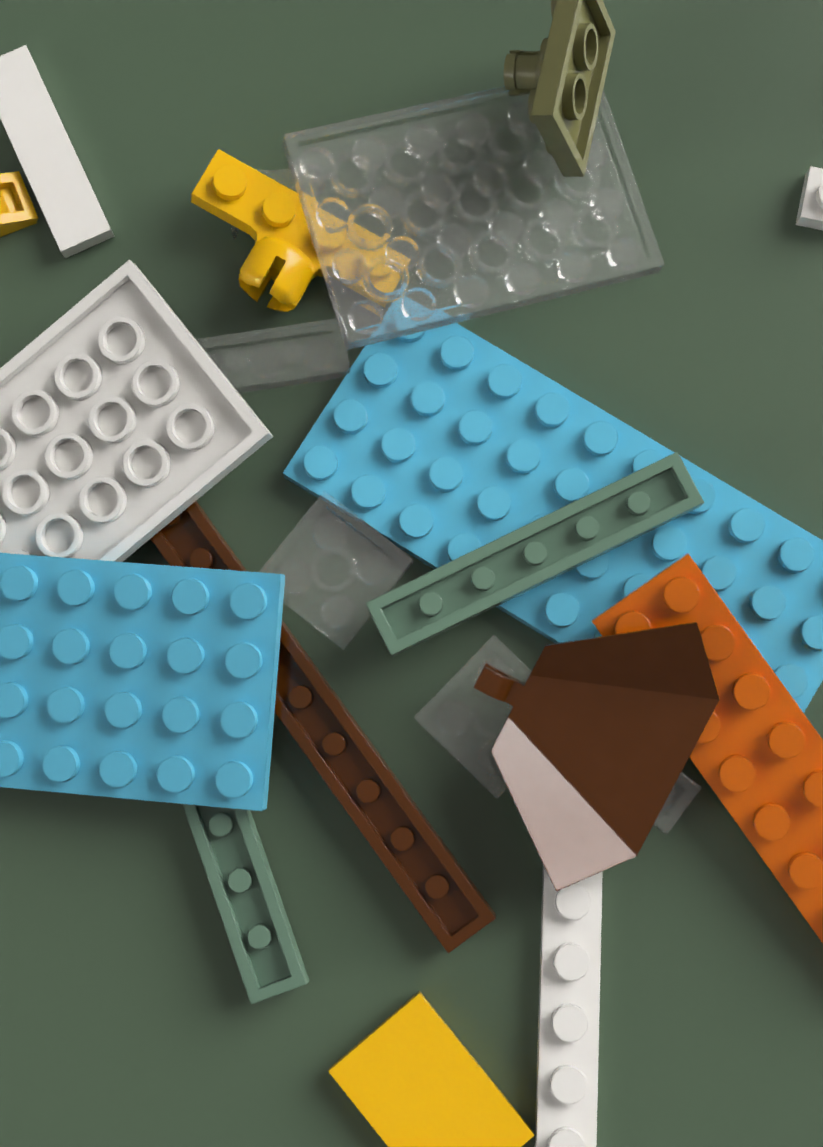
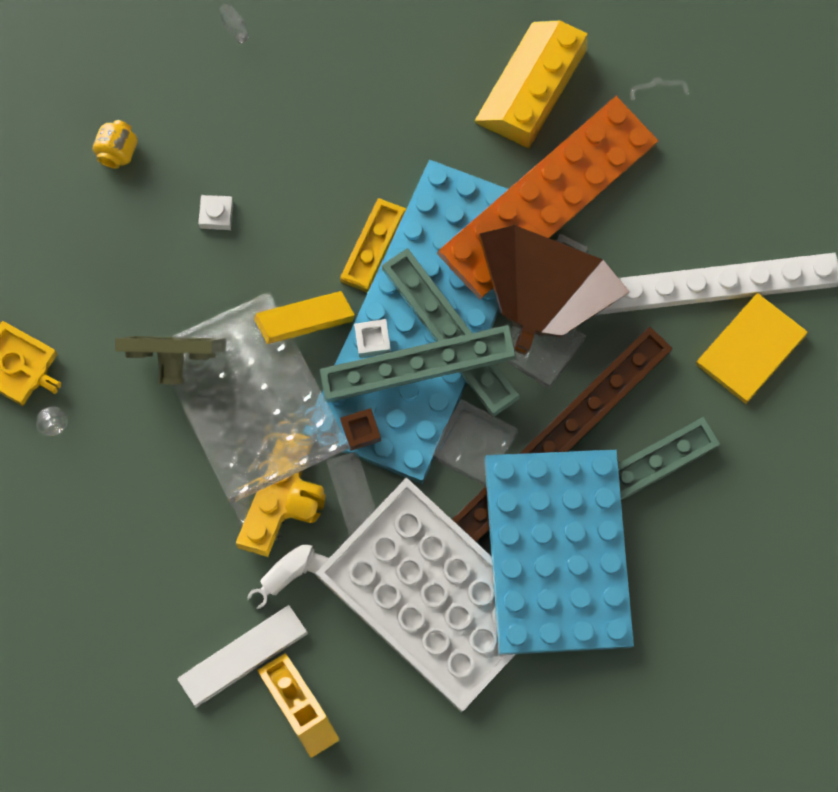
camera: 95 degrees left, 10 degrees down
(167, 234) = (287, 569): none -> white arm
(379, 375) = (360, 429): none -> reddish brown plate
(475, 490) = (418, 363): none -> sand green plate
(543, 419) = (372, 338): none -> white plate
(604, 312) = (304, 317): none -> yellow tile
(733, 455) = (372, 245): none -> yellow tile

